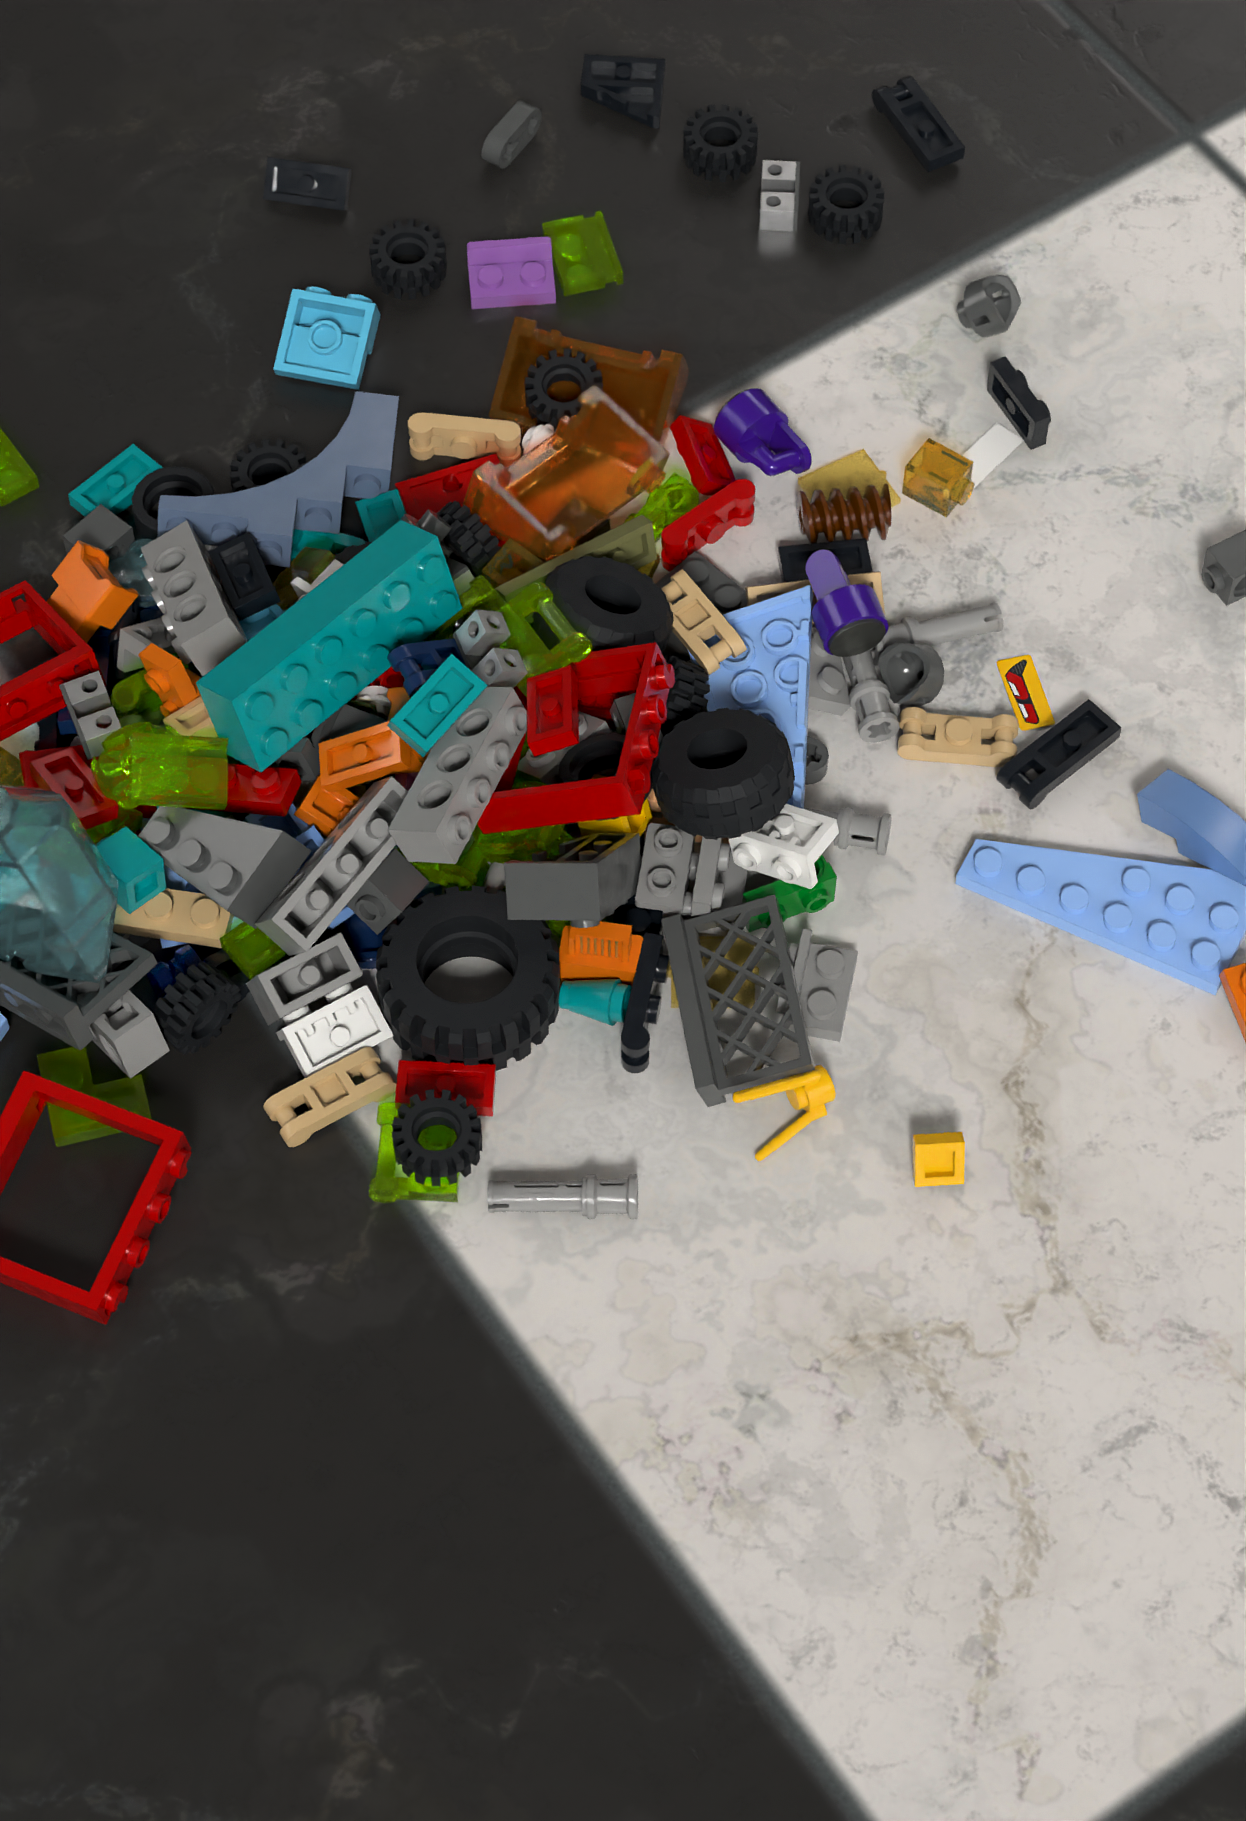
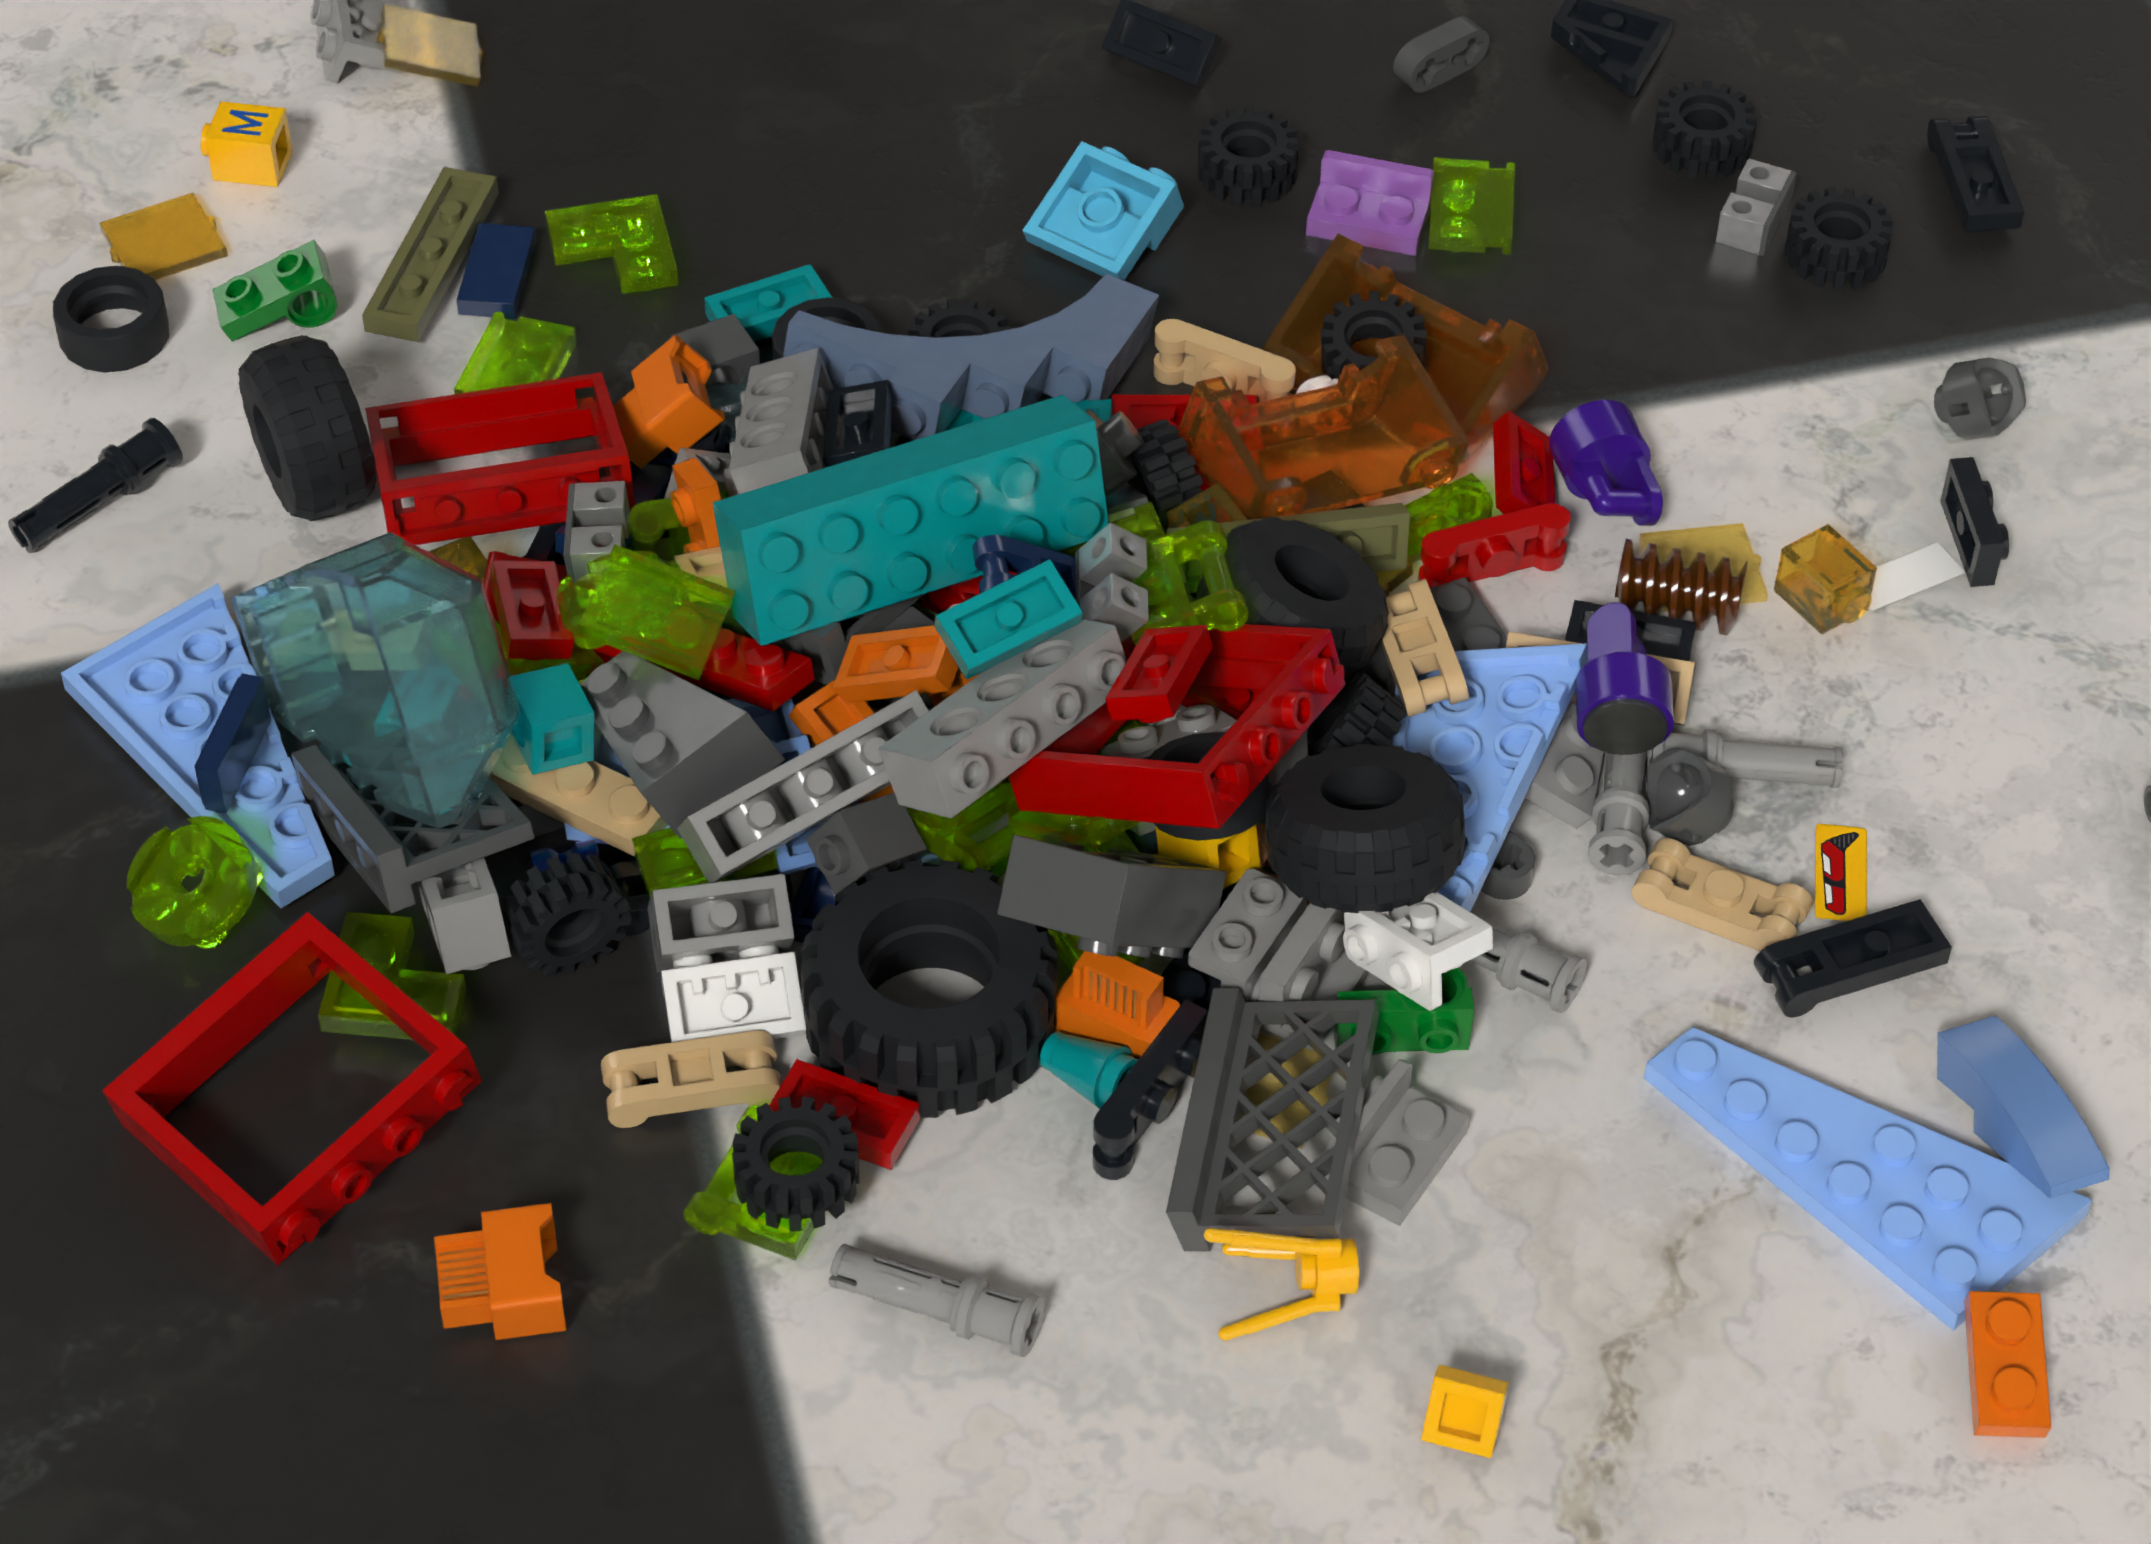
camera: 20 degrees right, 10 degrees down
(268, 1281) = (502, 1274): none -> orange piece

